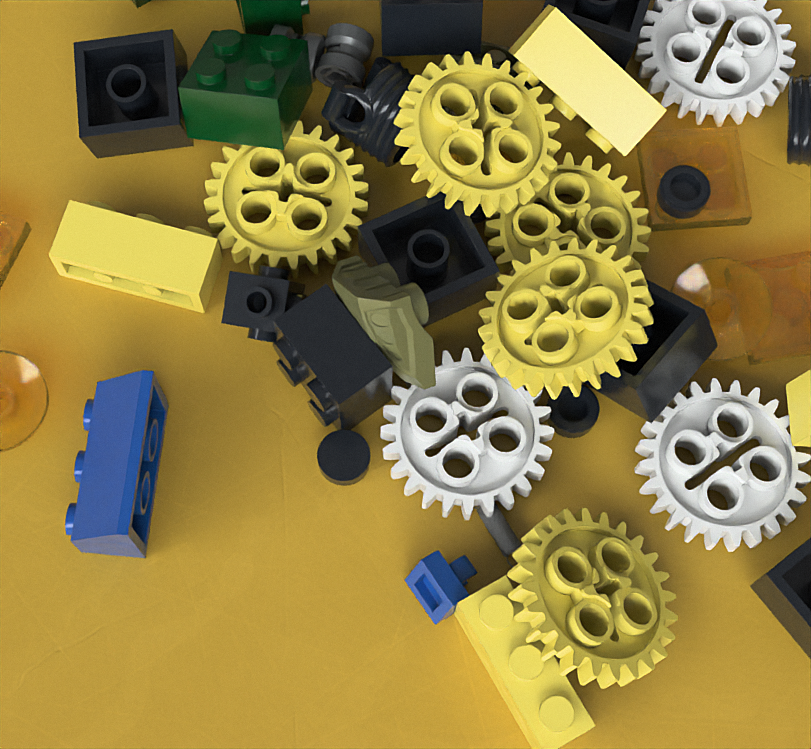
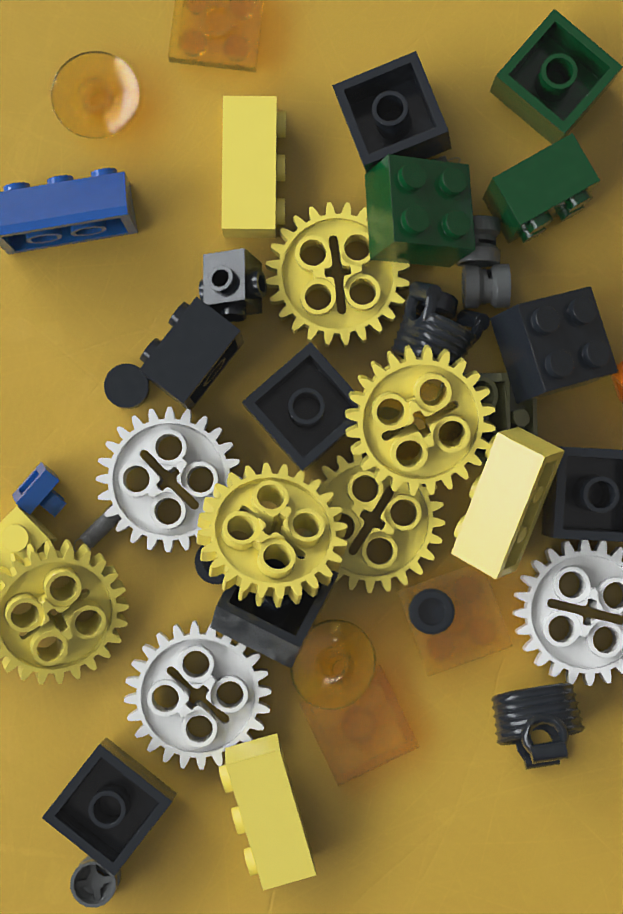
camera: 75 degrees right, 15 degrees up
(389, 316) = (232, 384): olive slope -> none

